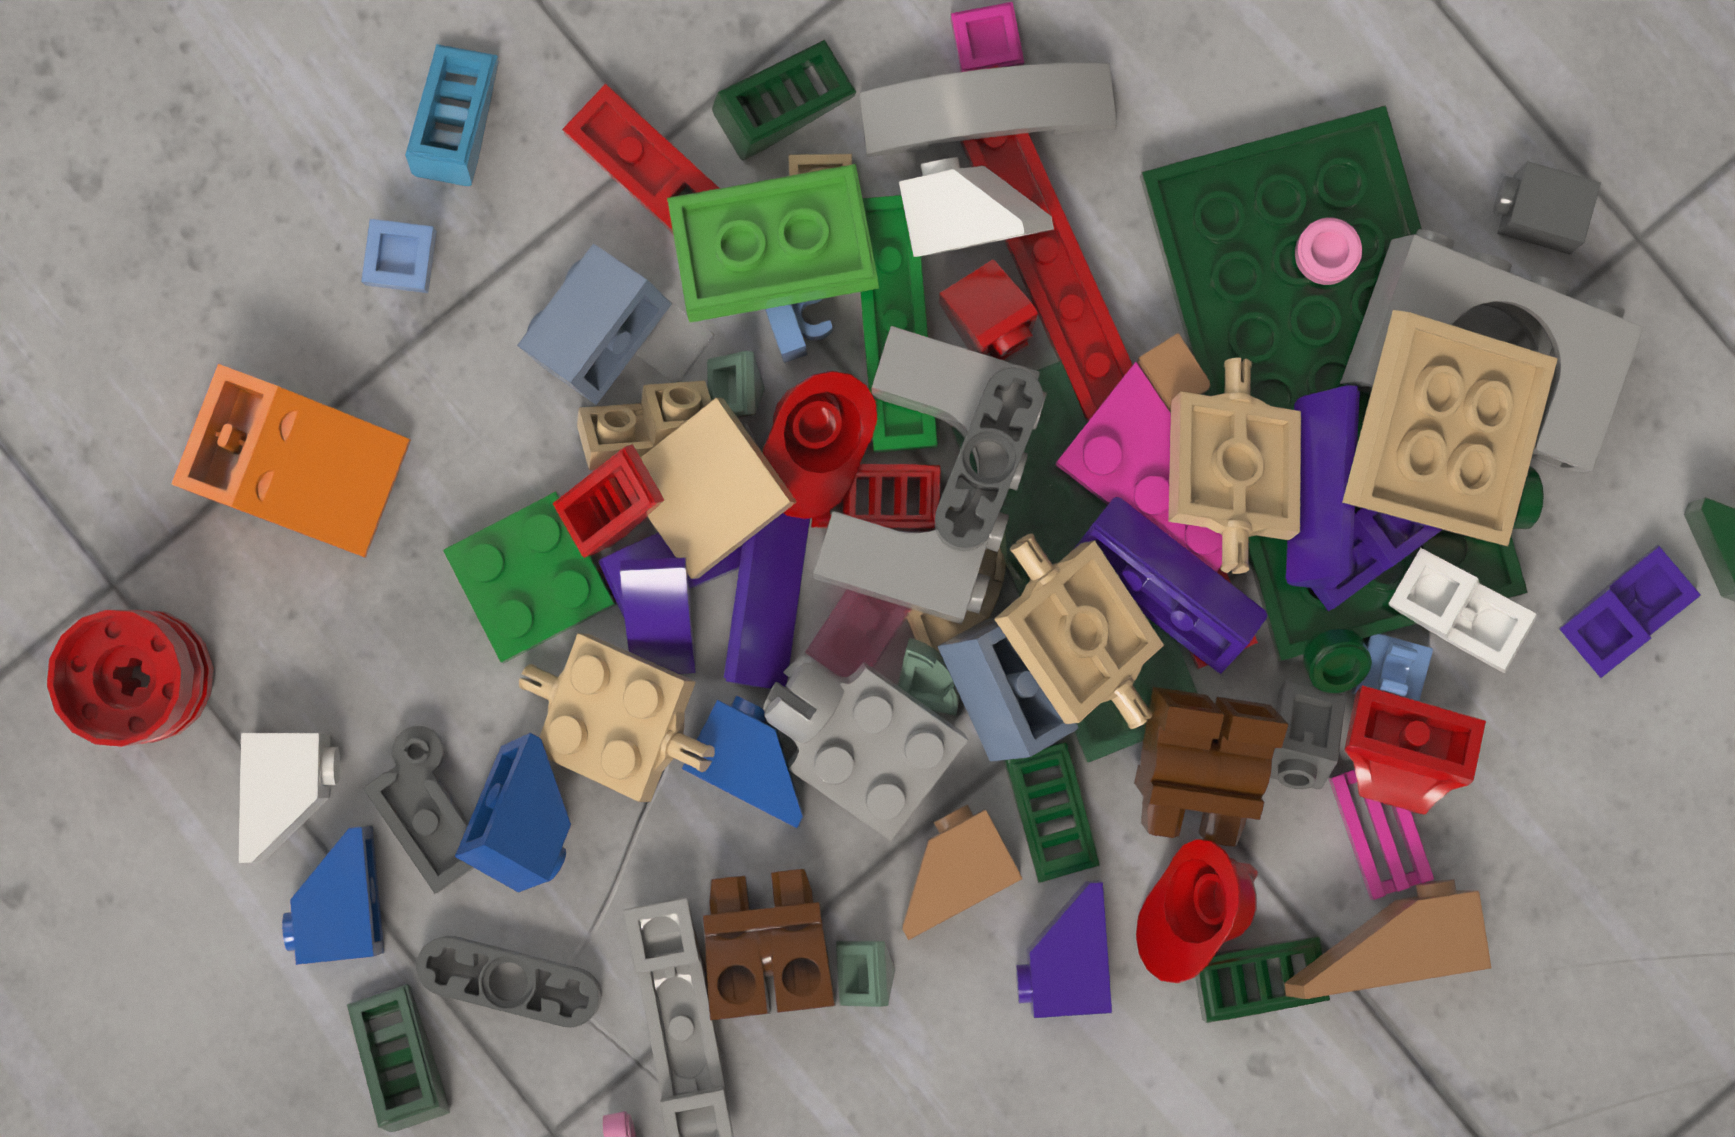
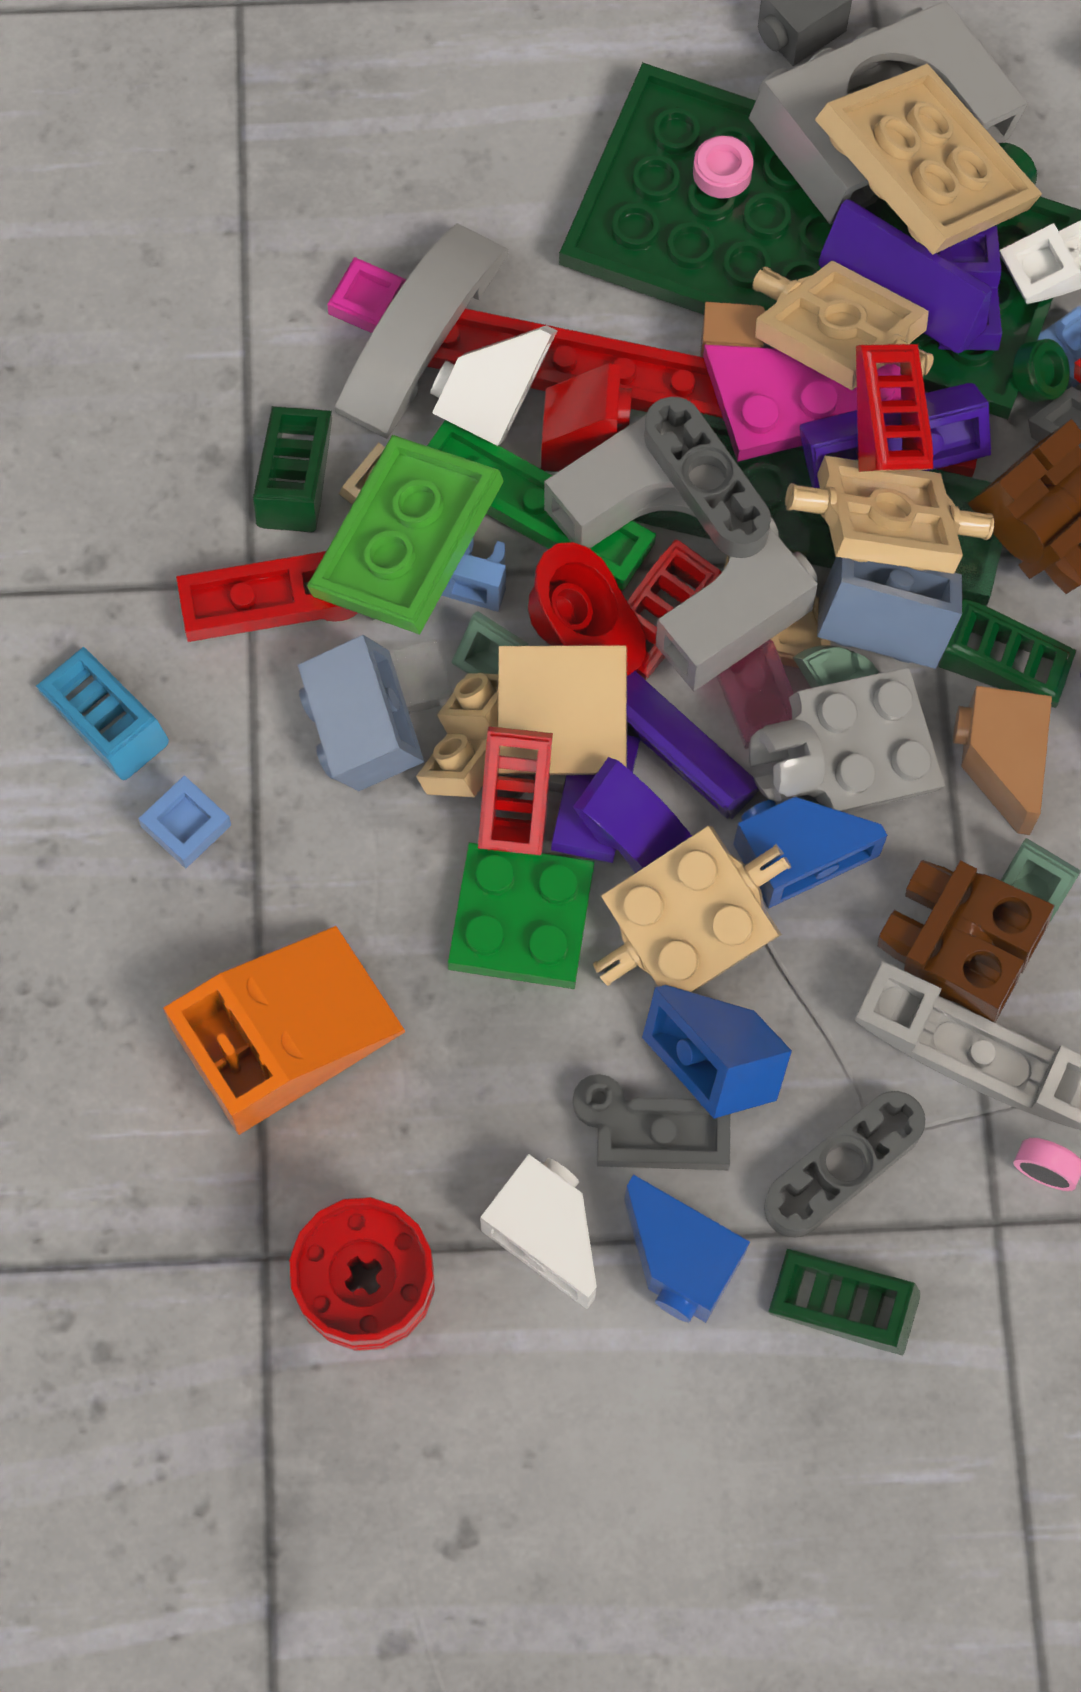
camera: 60 degrees left, 15 degrees down
(1143, 620) = (915, 427): none -> red slope

